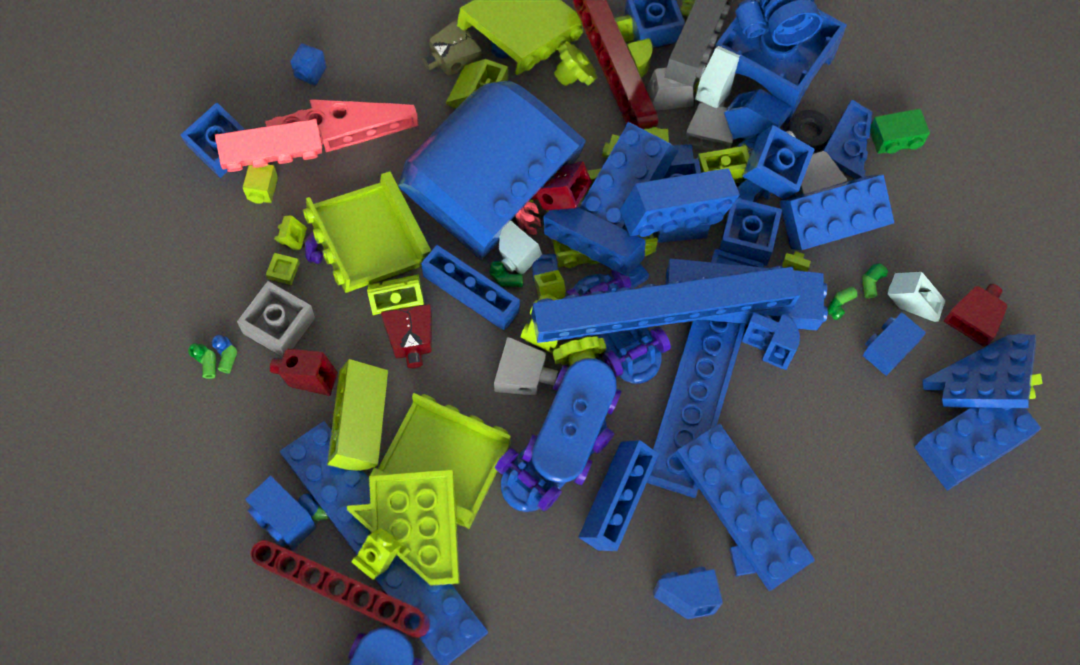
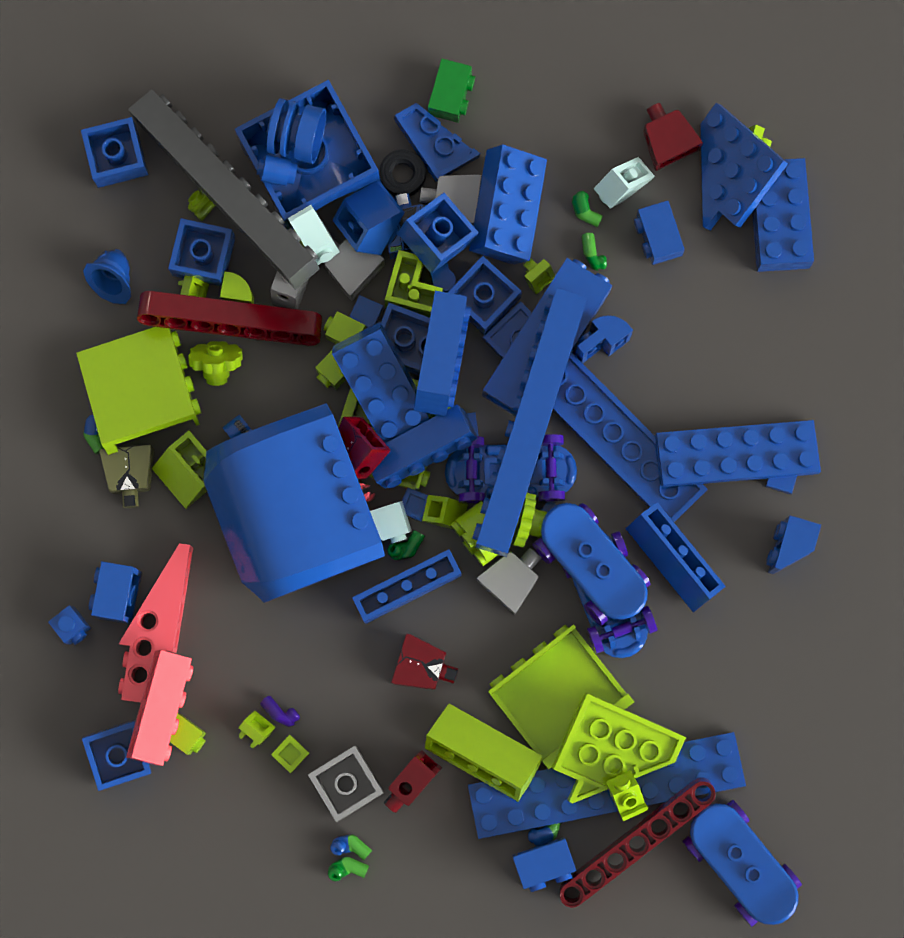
camera: 55 degrees left, 15 degrees up
(350, 77) = (115, 592): none -> blue brick
(368, 234) = (296, 655): lime panel -> none
(395, 294) = (377, 660): lime brick -> none

